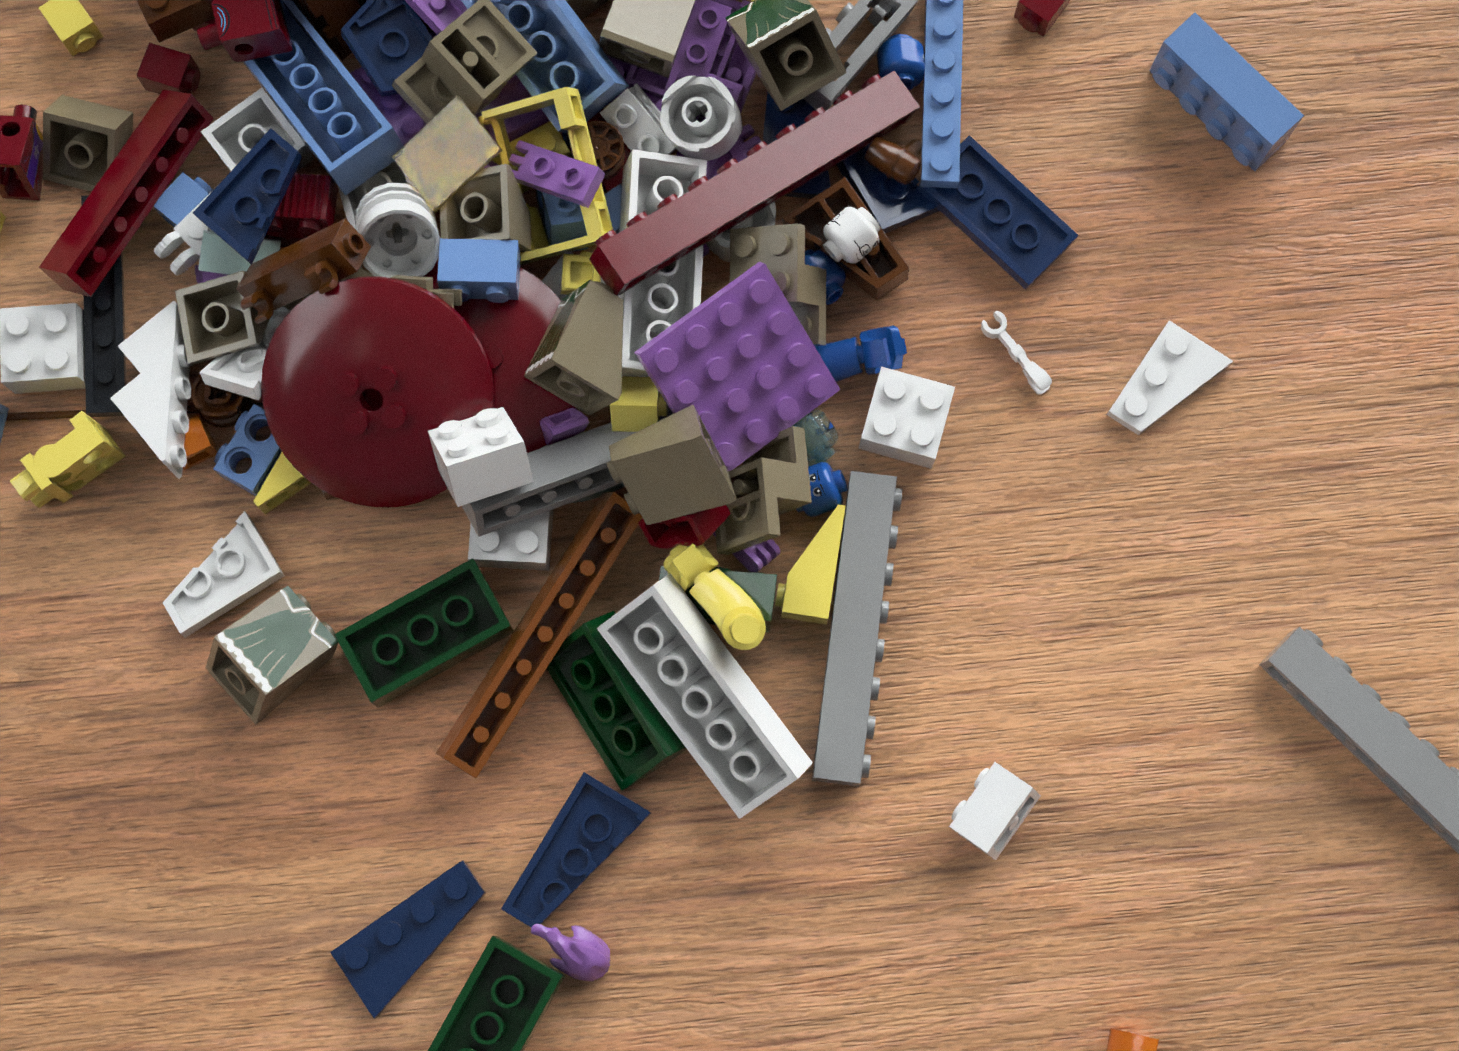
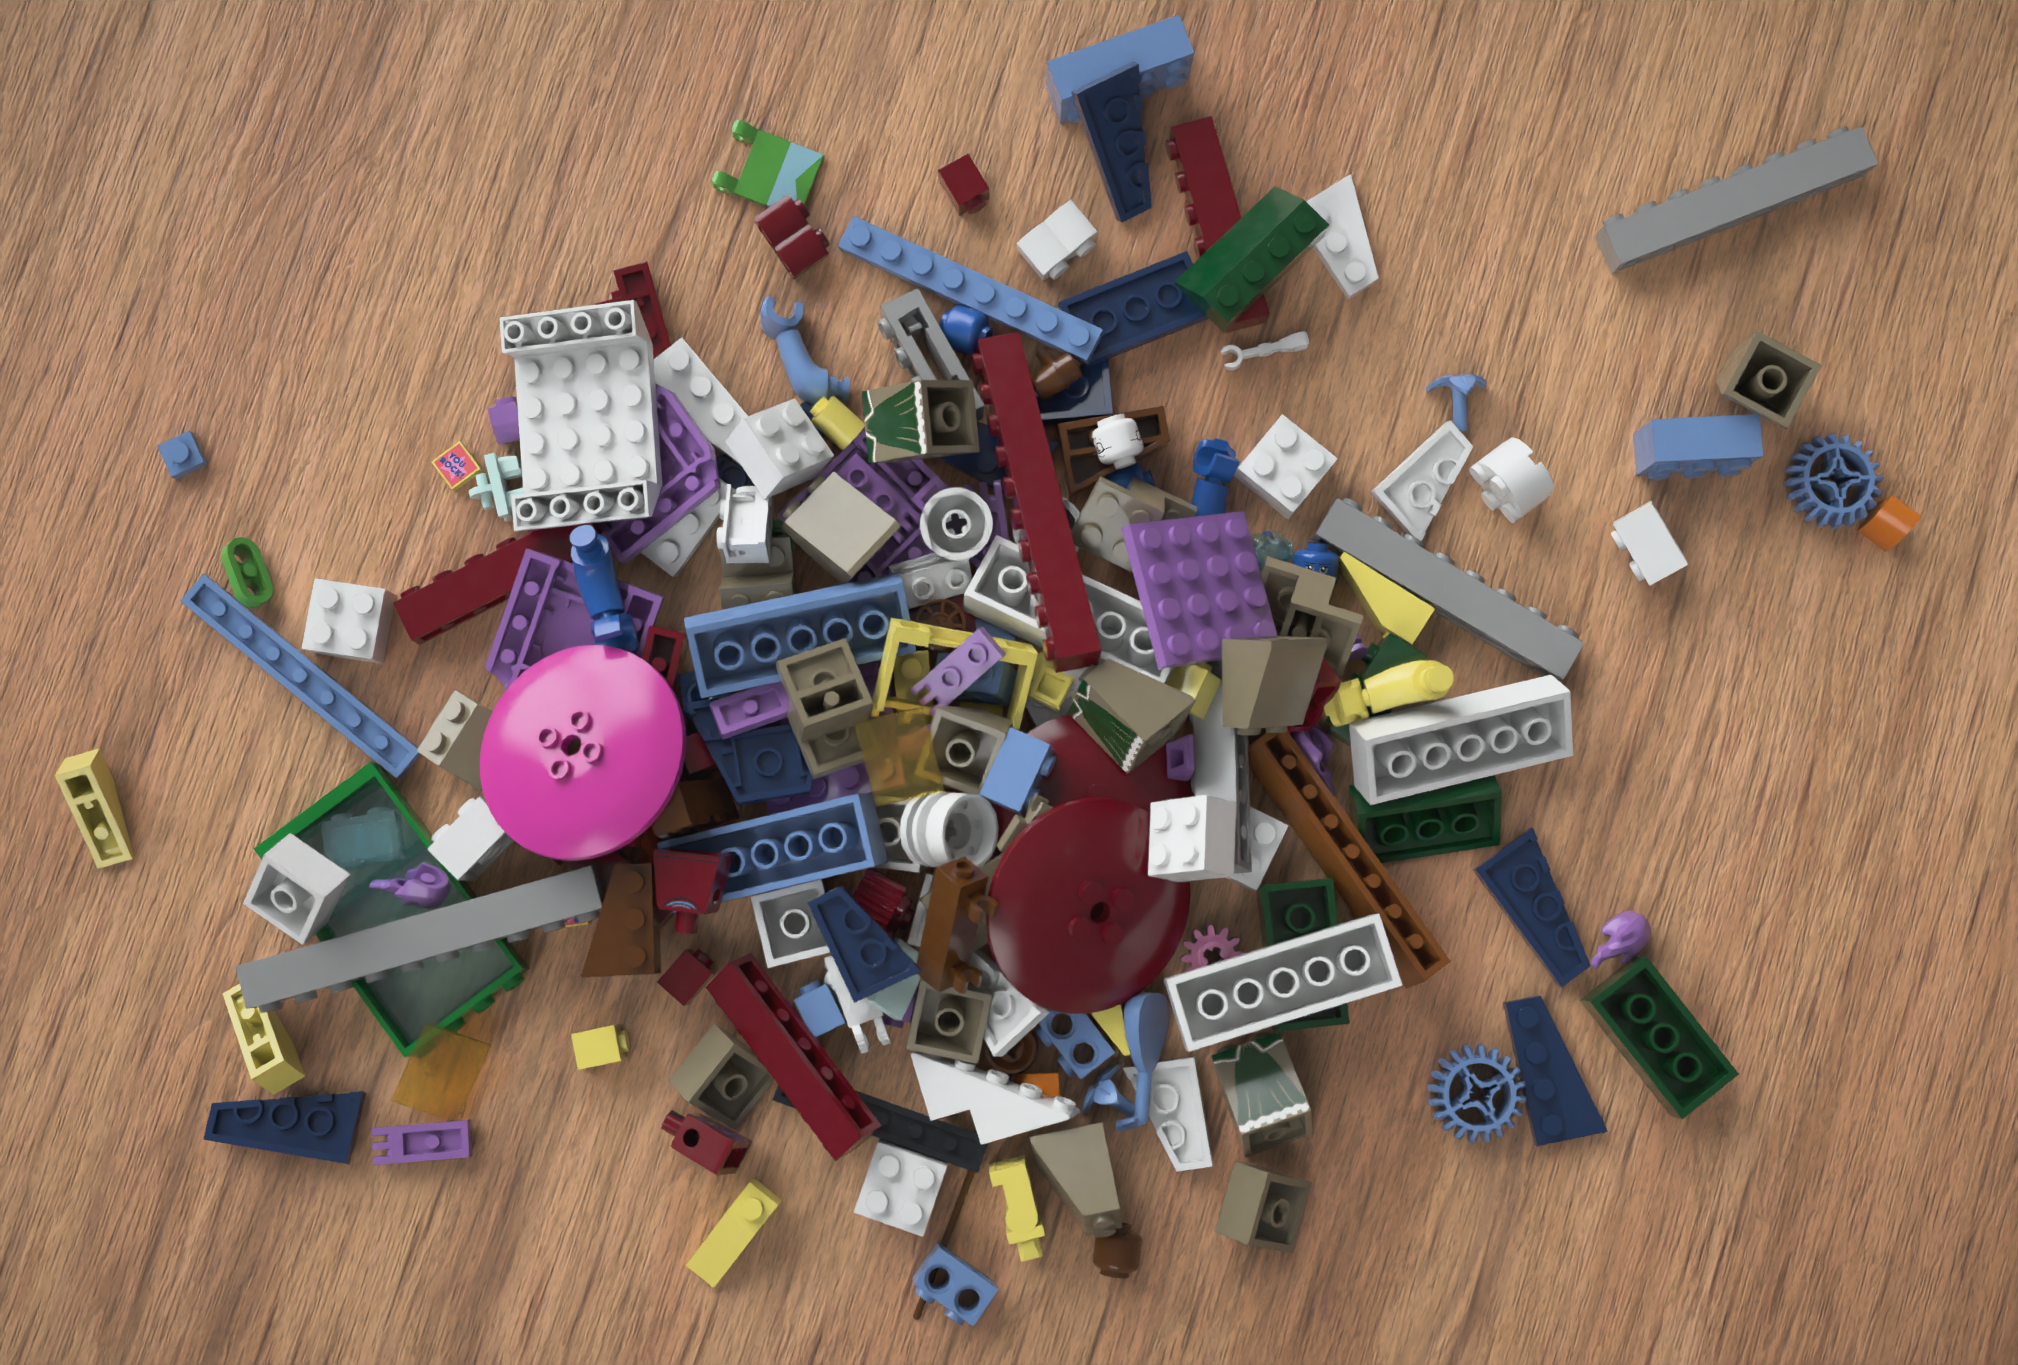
camera: 65 degrees left, 5 degrees up
(63, 577) = (1118, 1253): none -> reddish brown head
(117, 507) = (1082, 1176): none -> dark tan slope
(160, 702) = (1263, 1207): none -> dark tan slope
(210, 501) = (1107, 1094): none -> medium blue plant
(285, 514) = (1145, 1031): none -> medium blue piece
(345, 880) = (1490, 1086): none -> medium blue gear
(379, 610) = (1282, 982): none -> white brick
(398, 559) = (1208, 941): none -> bright pink gear
(637, 562) = (1317, 748): none -> medium lavender piece
(957, 560) = (1420, 482): none -> white wing
(993, 641) = (1512, 480): none -> white brick
(1029, 111) = (1057, 241): none -> white brick
(1067, 553) = (1460, 386): none -> medium blue plant
(1097, 293) = (1252, 256): none -> dark green slope
(1116, 816) = (1697, 446): none -> medium blue brick
(1118, 254) = (1209, 194): none -> dark red brick
(1157, 994) = (1835, 454): none -> medium blue gear
(1161, 107) = (1115, 134): none -> dark blue wing
(1213, 851) = (1767, 378): none -> dark tan slope

